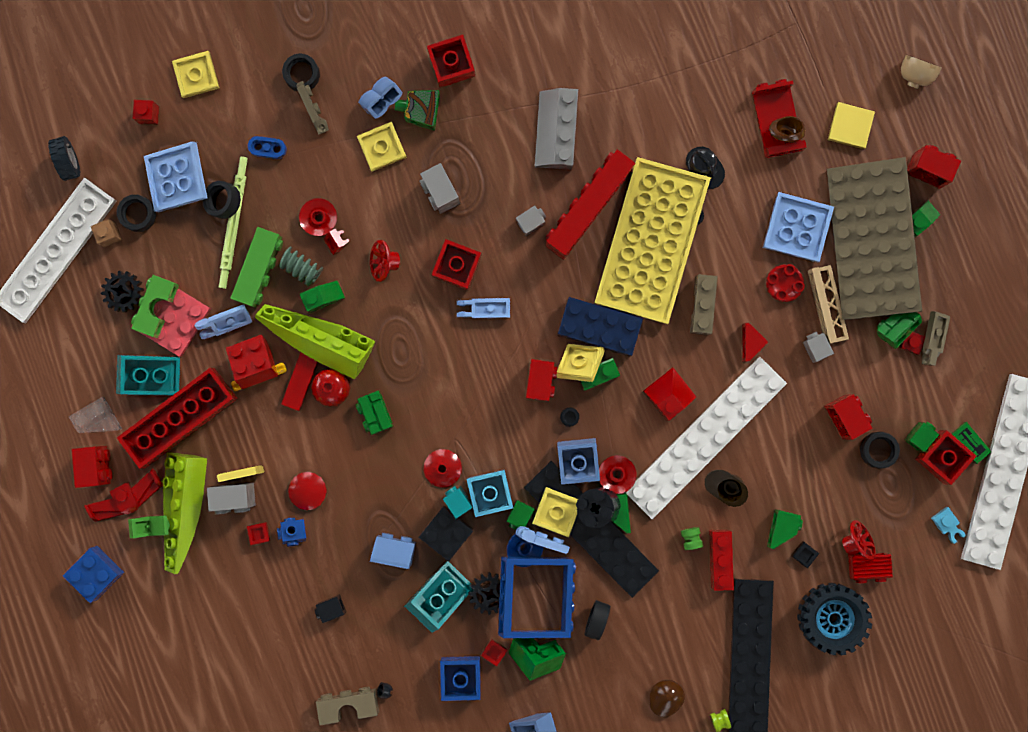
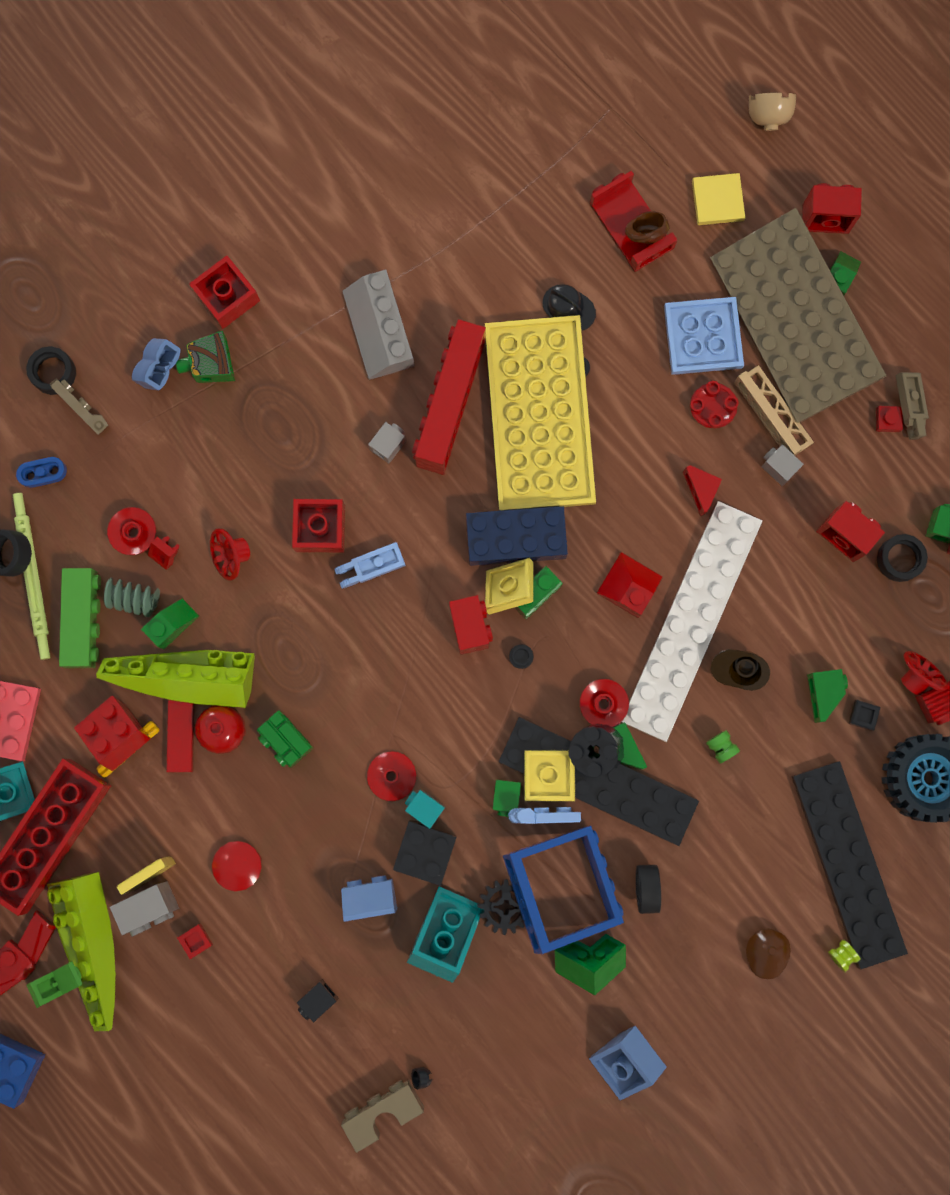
camera: 25 degrees left, 5 degrees down
(223, 322) = (61, 698): light blue hinge -> none
(292, 524) = (233, 914): blue brick -> none
(381, 146) = (178, 421): light yellow tile -> none
(440, 188) = (266, 443): light grey brick -> none
(460, 678) = (508, 1025): blue brick -> none
(489, 493) = (459, 783): medium azure brick -> none
(494, 652) = (538, 977): red plate -> none
(529, 550) = (534, 834): blue dish -> none
(578, 461) = (552, 704): medium blue slope -> none
(704, 305) = (631, 469): dark tan arch -> none
(721, 560) = (768, 759): red brick -> none
(898, 328) = (866, 407): green brick -> none

